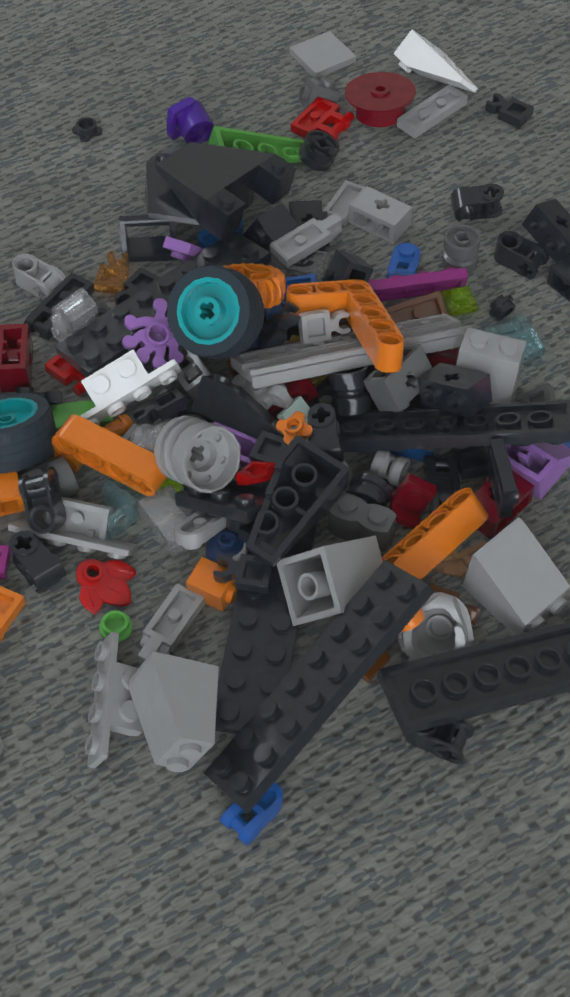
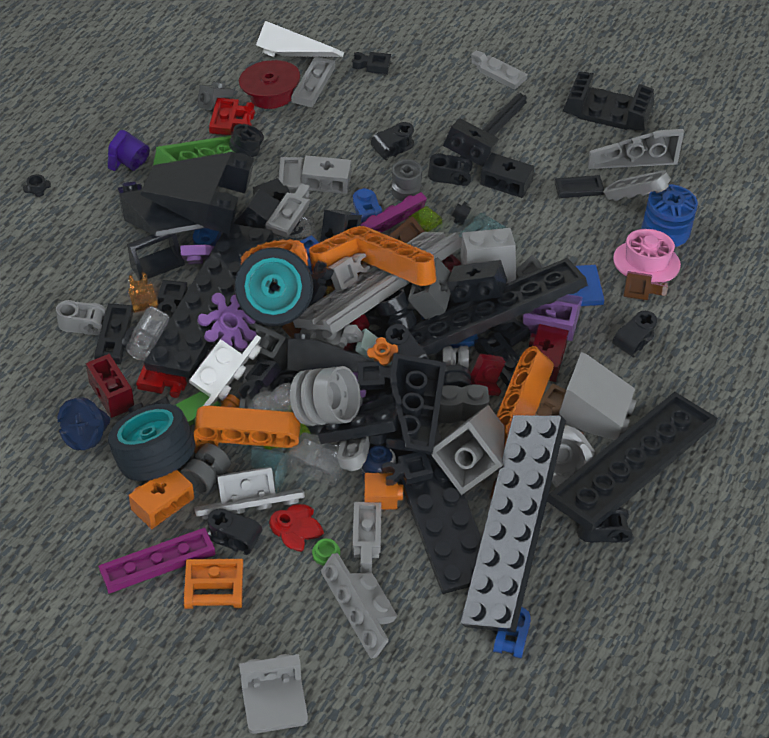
camera: 30 degrees left, 5 degrees down
(41, 499) = (217, 479): black piece -> none
(176, 708) = (420, 584): light grey slope -> none
(255, 473) = (373, 394): red tile -> none
(322, 54) = (195, 63): light grey tile -> none
(501, 478) = (548, 331): black plate -> none

